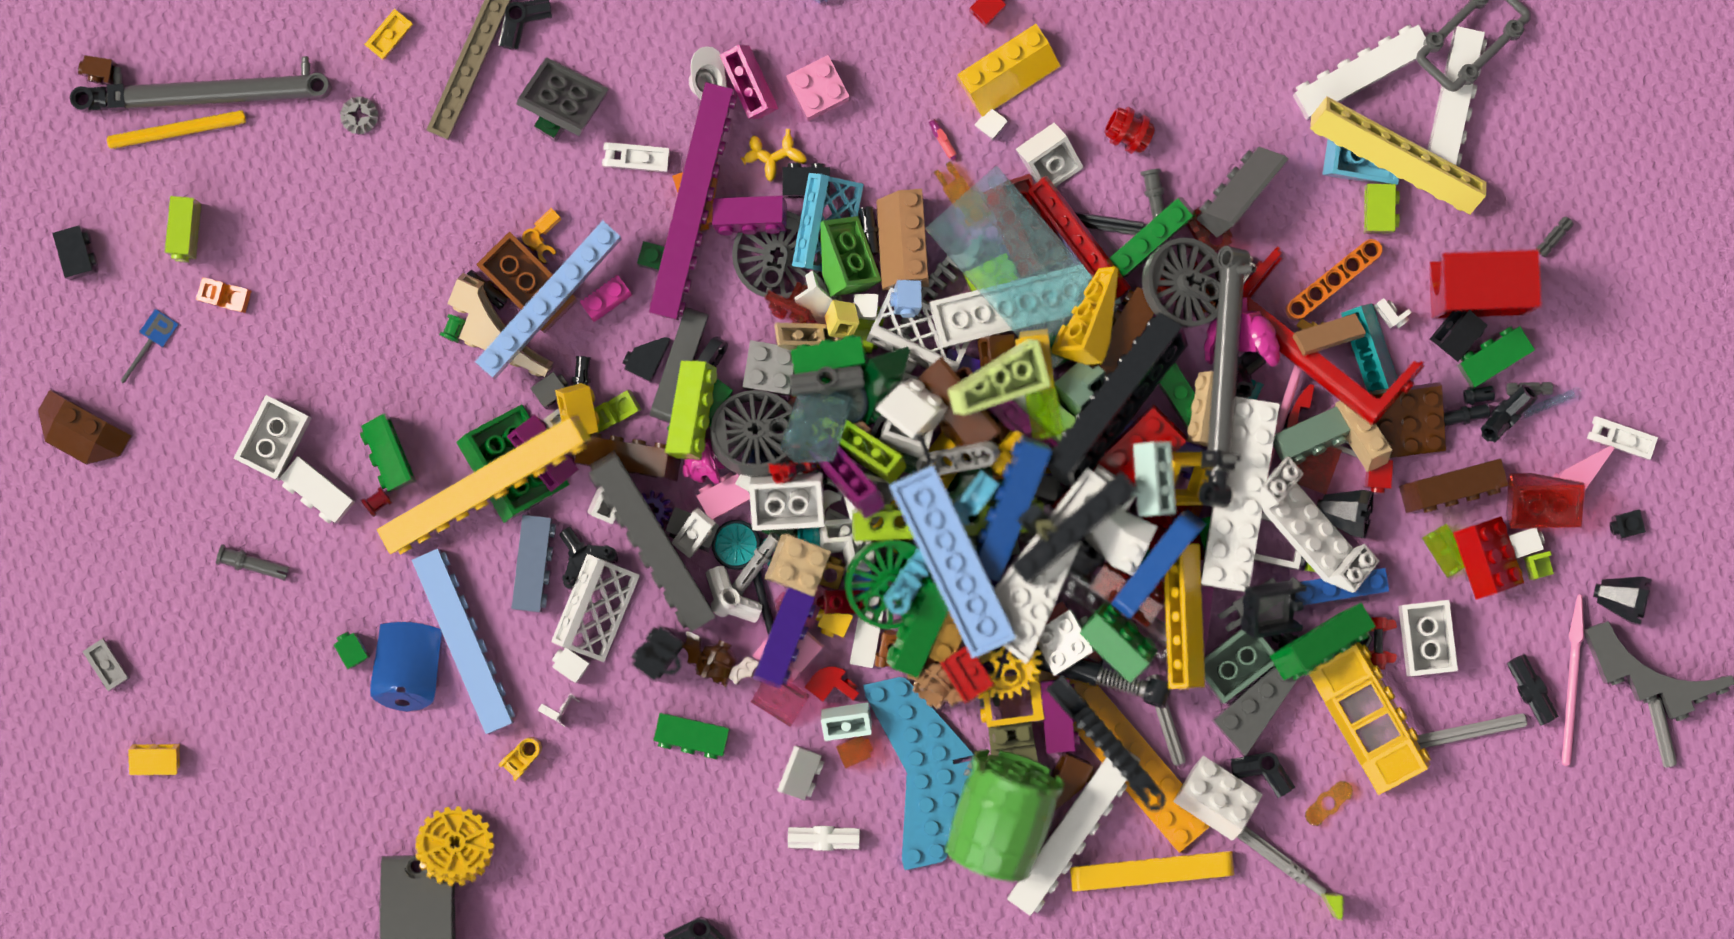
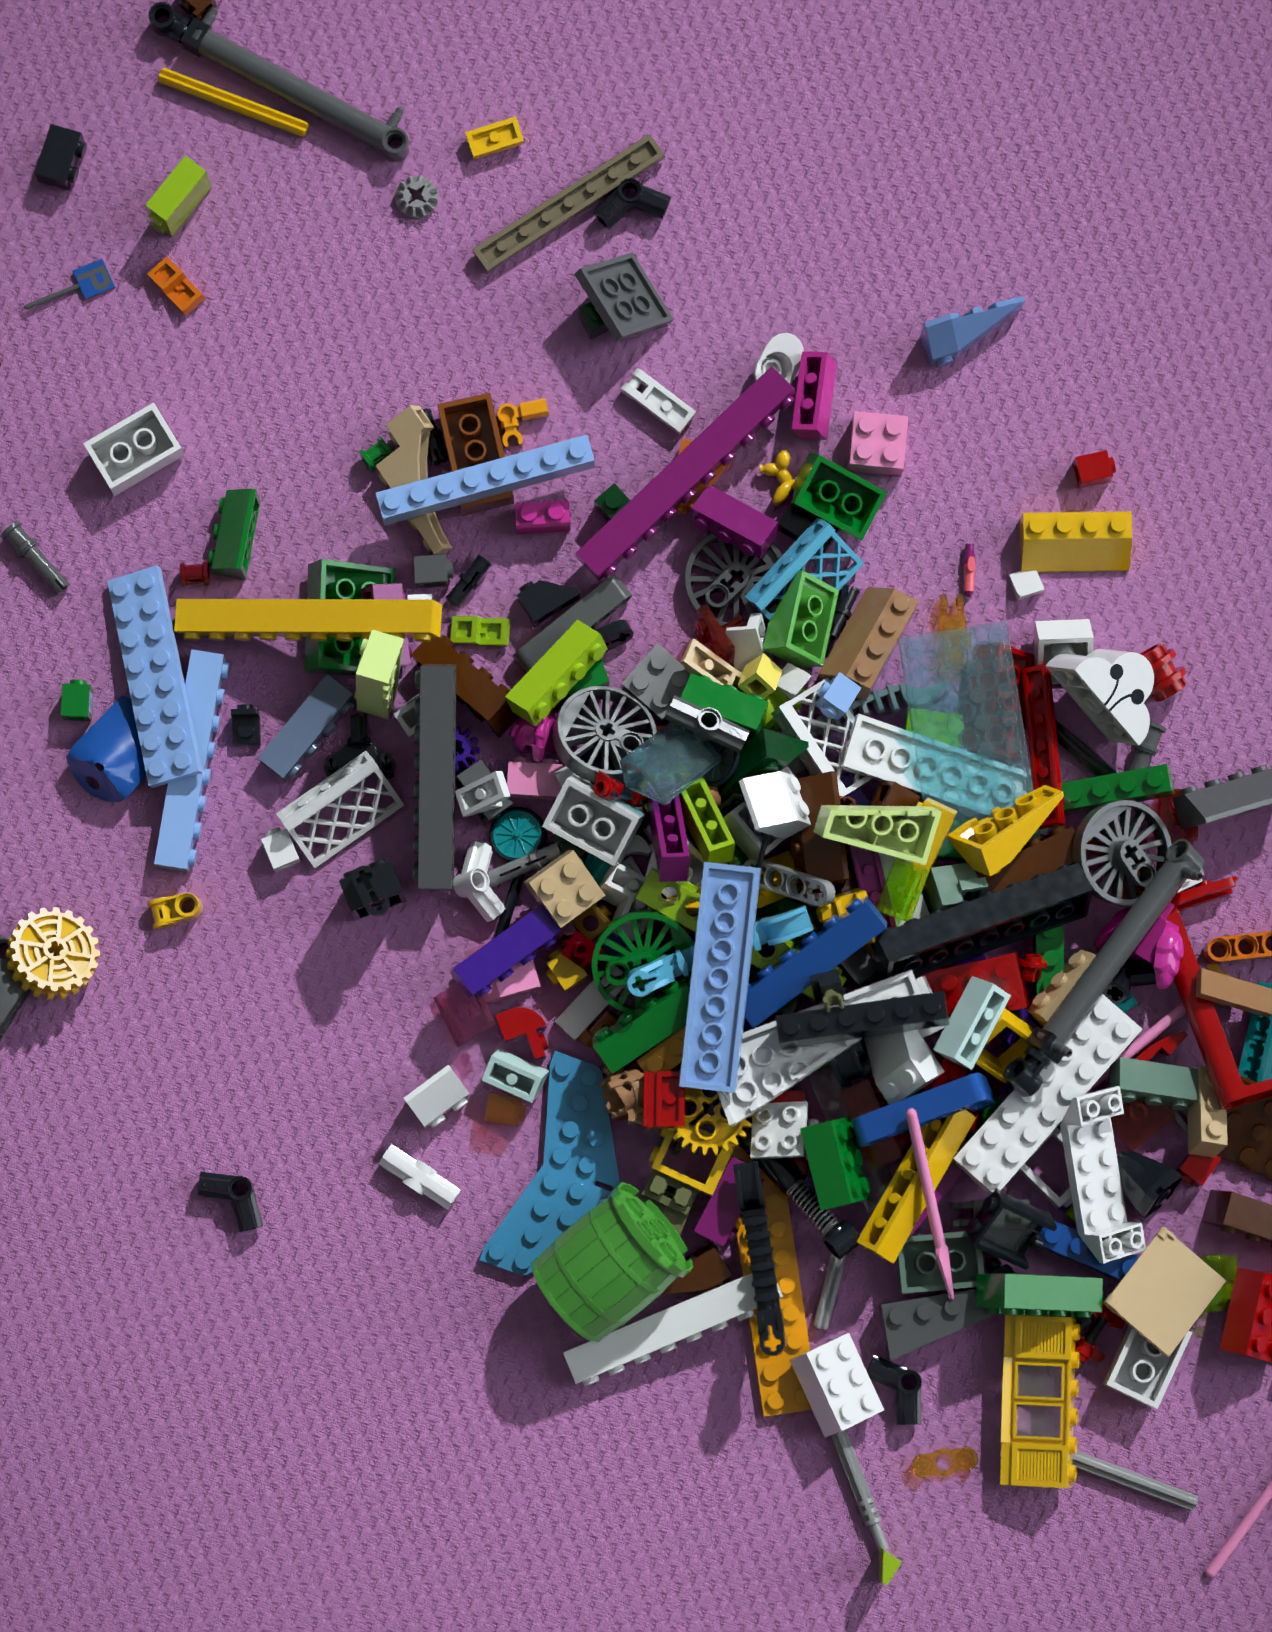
camera: 30 degrees right, 5 degrees down
(316, 491) = (143, 526): white brick -> none
(397, 596) = (154, 677): none -> light blue plate
(486, 589) = (246, 725): none -> black bracket
(553, 714) = (236, 891): white piece -> none
(561, 493) = (378, 673): none -> yellowish green wedge
(578, 401) = (454, 597): yellow brick -> none
(691, 735) = (353, 993): green brick -> none
(717, 661) = (426, 935): reddish brown helmet -> none
(813, 148) = (837, 495): none -> green slope
(1102, 167) = (1109, 690): none -> white brick
(1152, 871) = (725, 1417): yellow beam -> none
(1172, 406) = (1033, 966): none -> red plate
(1233, 655) = (942, 1253): none -> bright pink piece
(1411, 583) = (1164, 1291): none -> tan piece
(1532, 689) = (1220, 1477): black piece -> none

